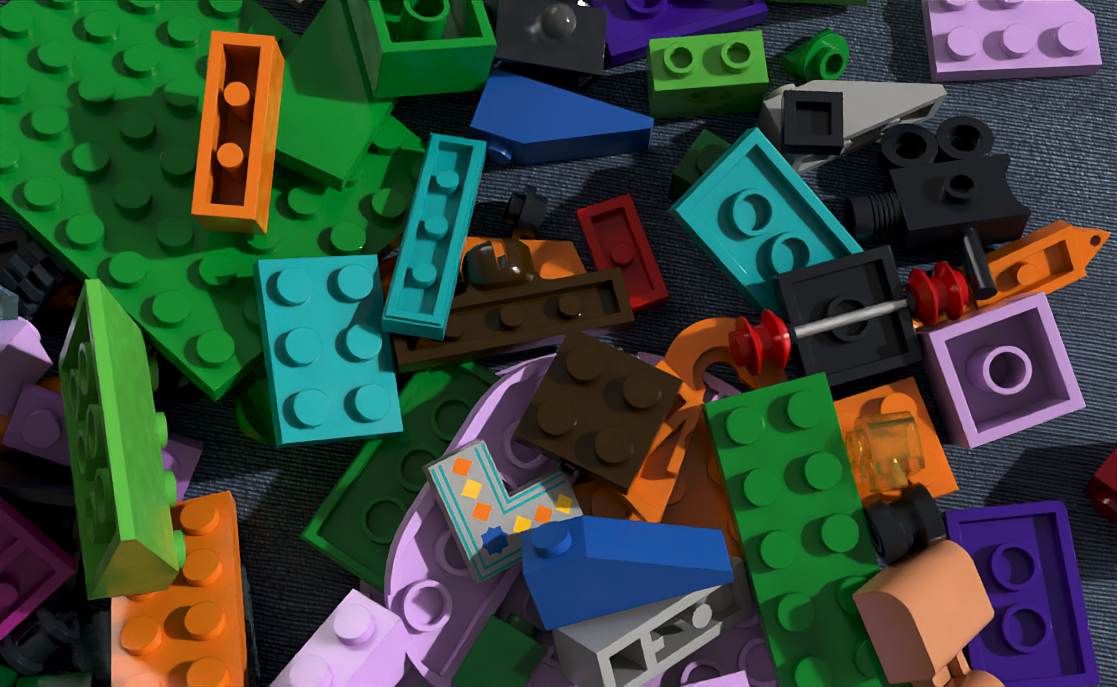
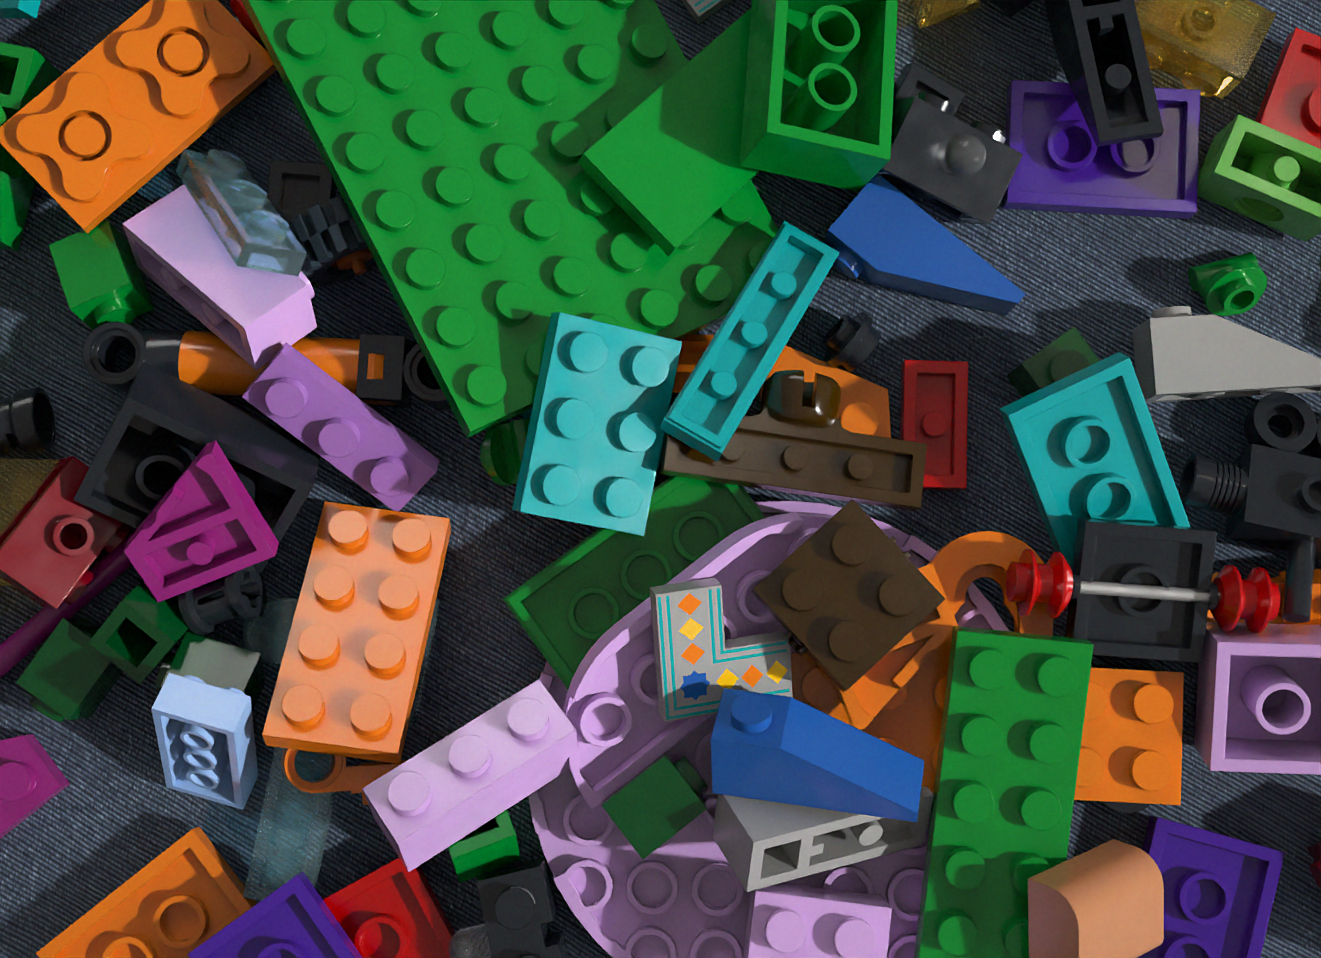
camera: 25 degrees right, 10 degrees up
(116, 451) = (353, 458): bright green slope -> none
(238, 133) = (587, 167): orange brick -> none
(706, 74) = (1100, 260): bright green brick -> none
(812, 122) = (1191, 366): black plate -> none
(885, 450) = (1122, 744): clear yellow plate -> none
(903, 522) = (1107, 822): black wheel -> none

